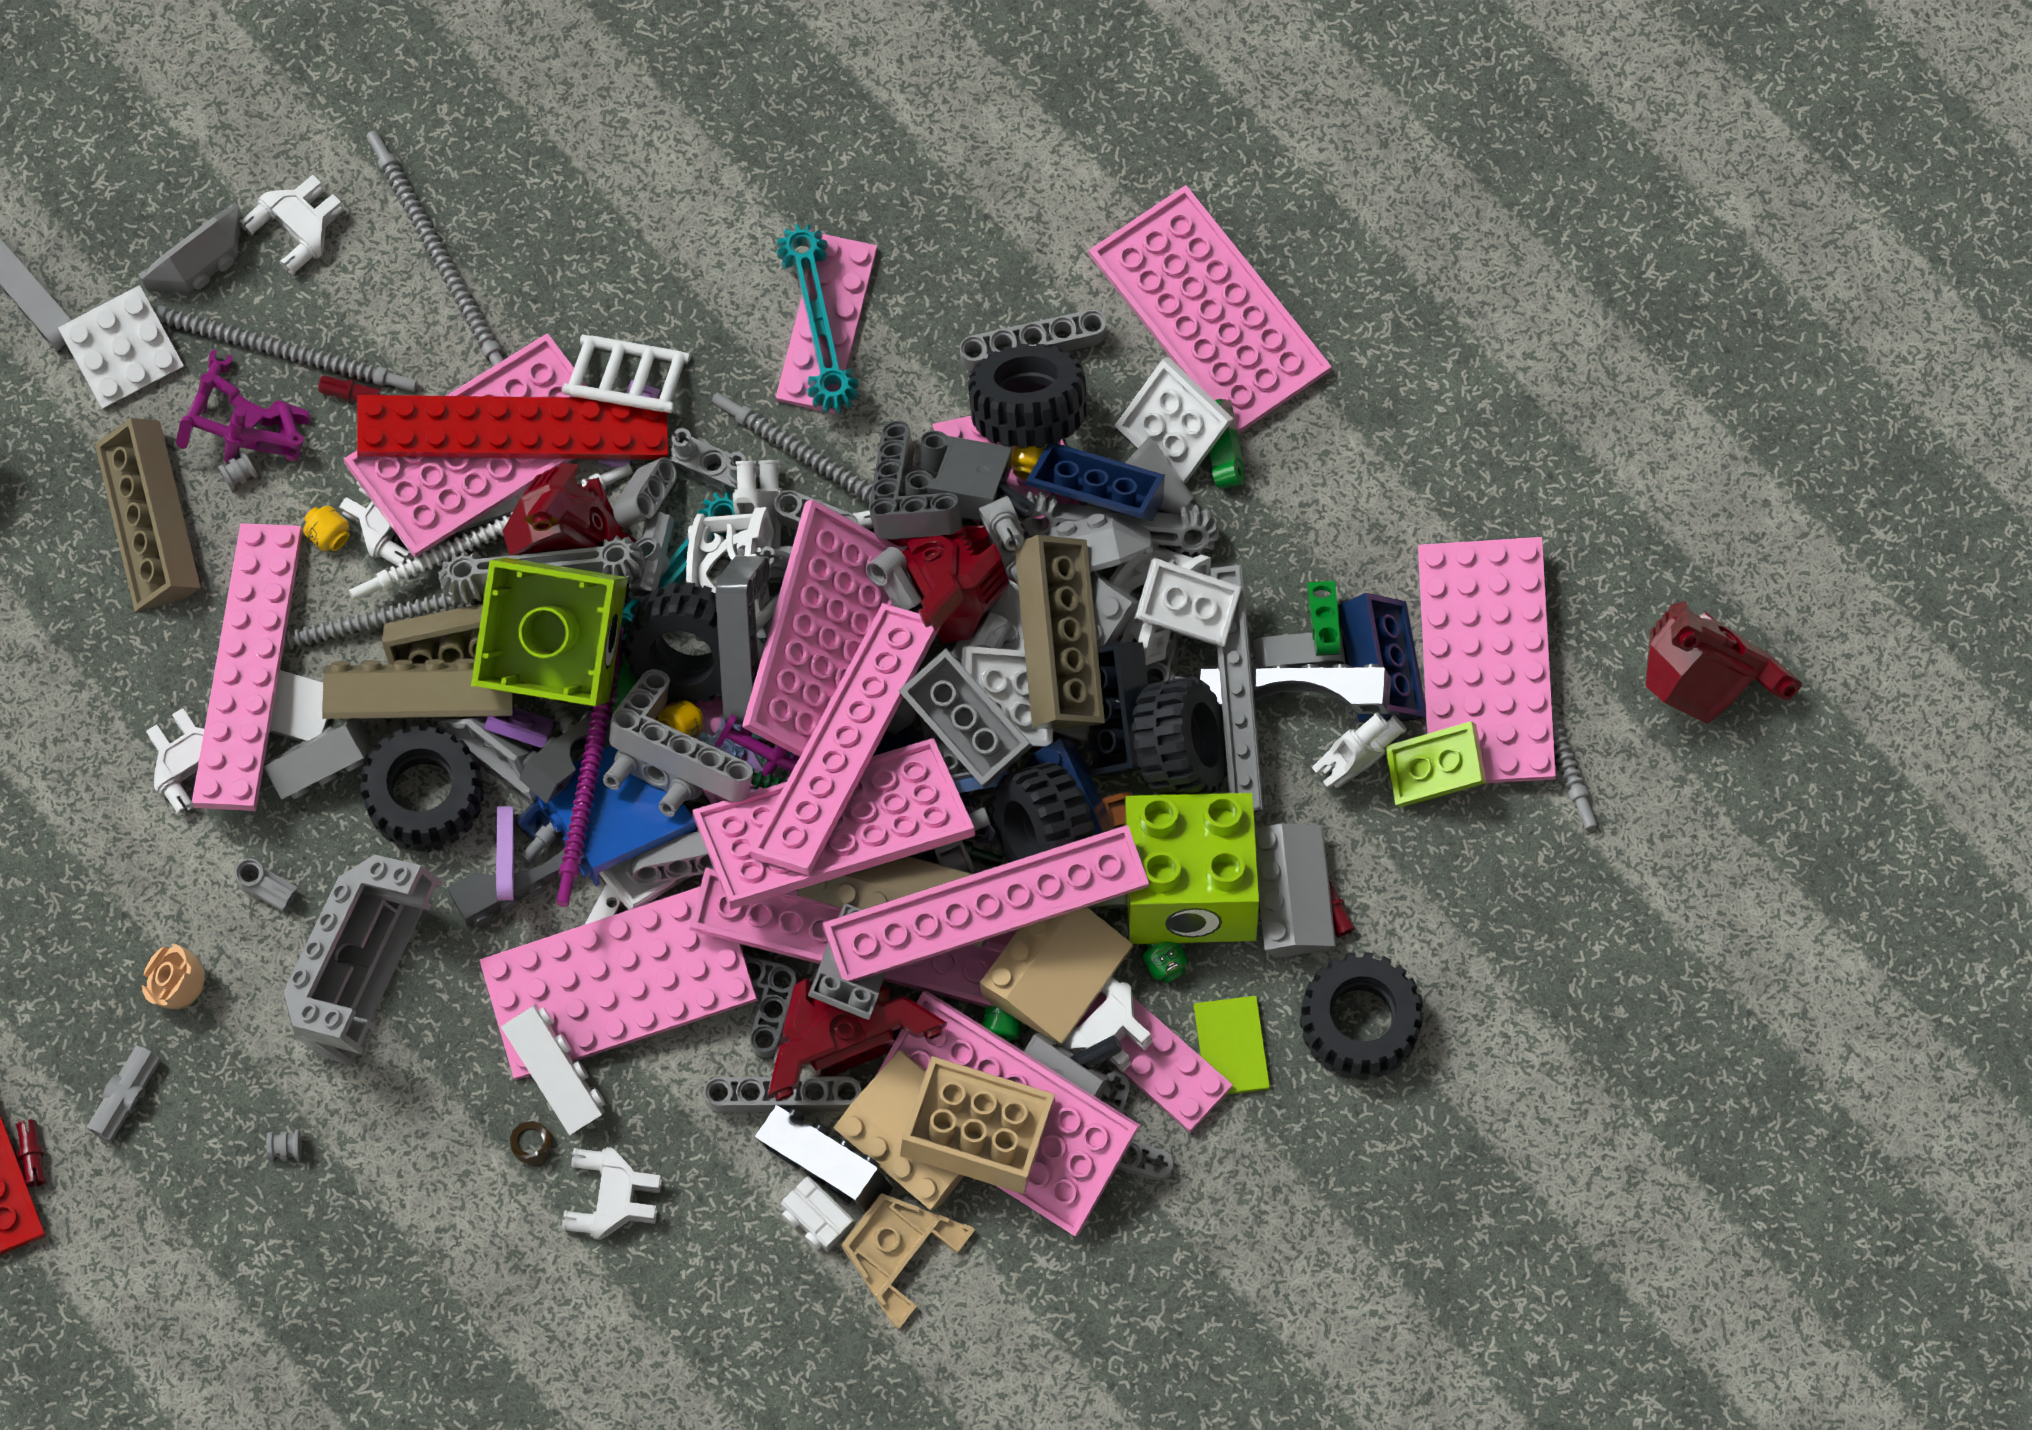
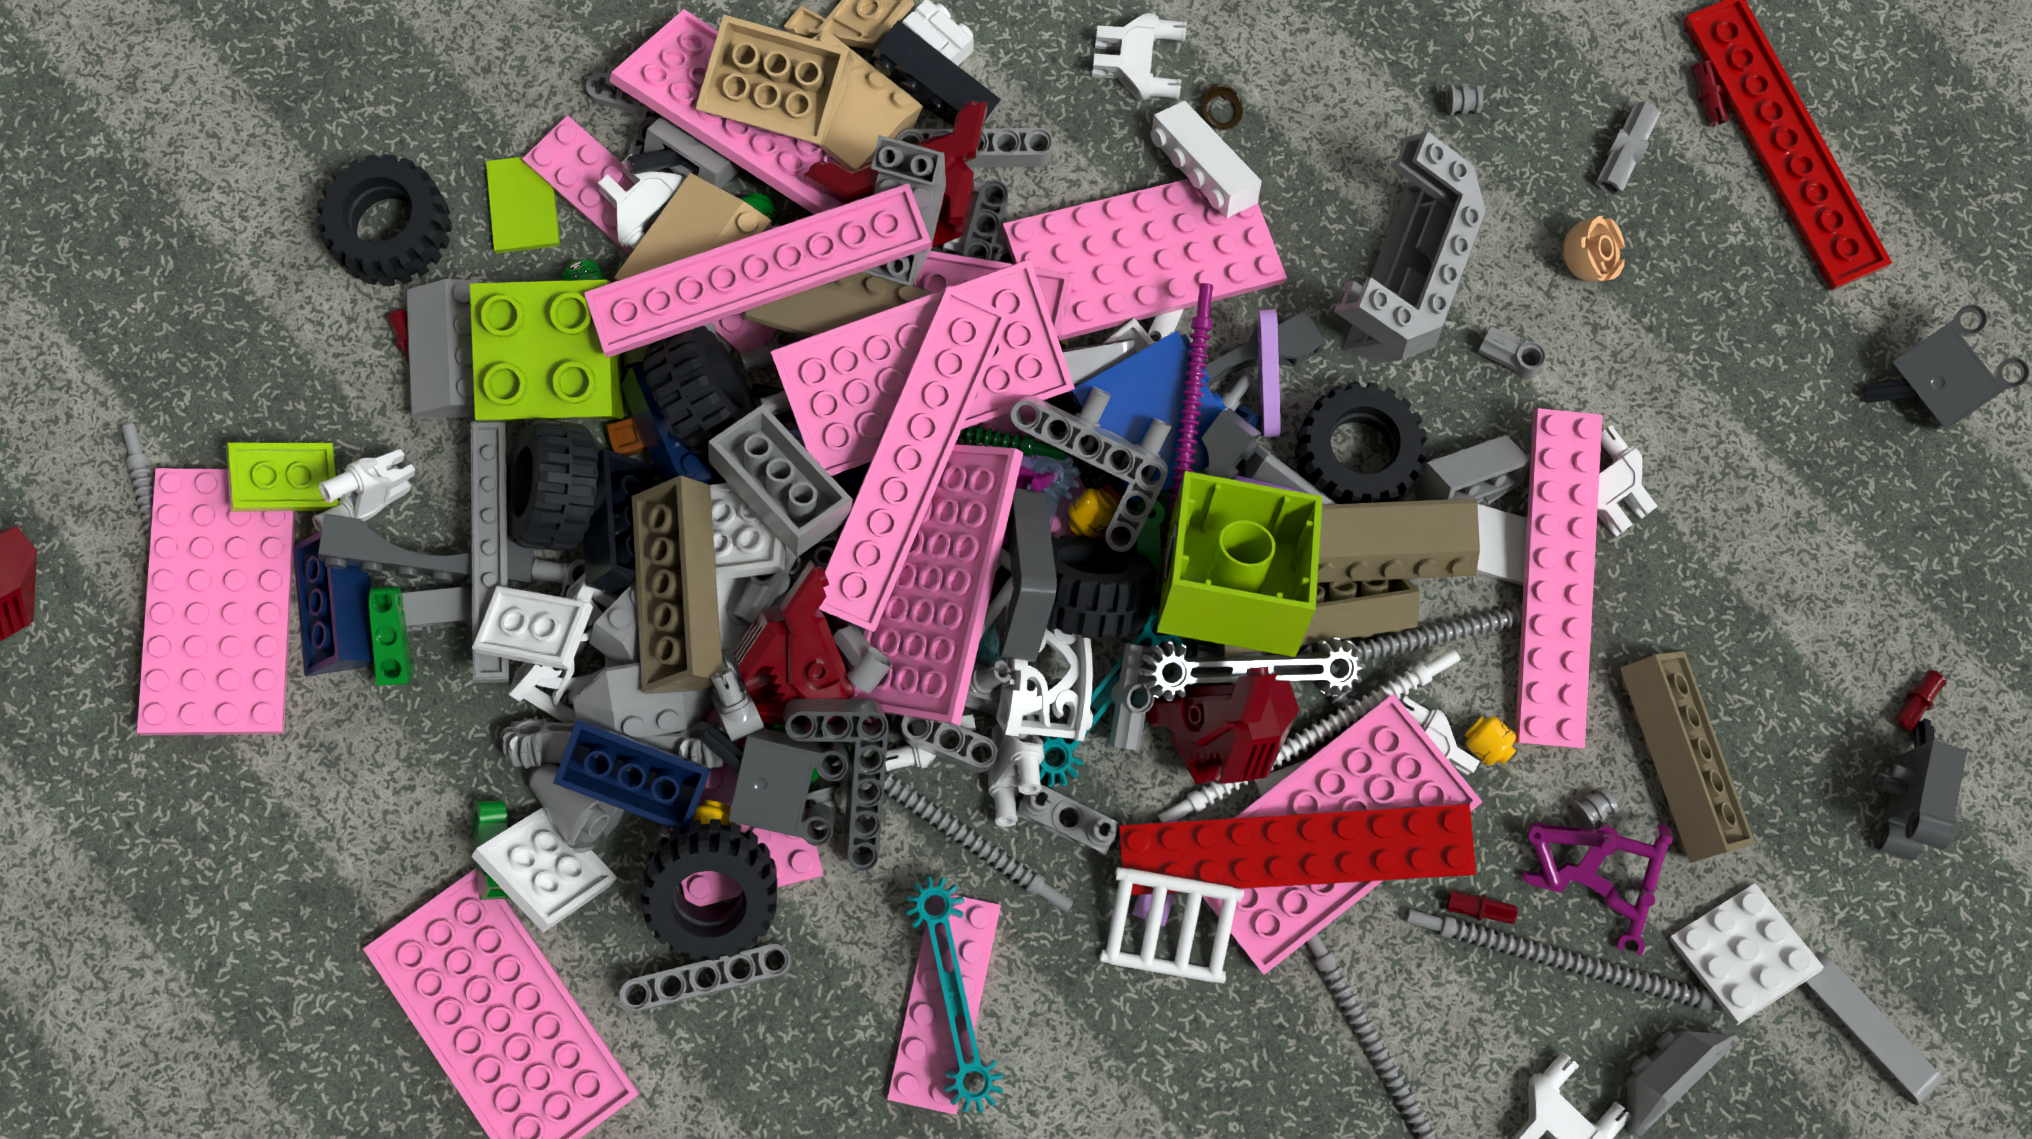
camera: 175 degrees right, 5 degrees up
(645, 492) = (1142, 775): light grey beam -> none

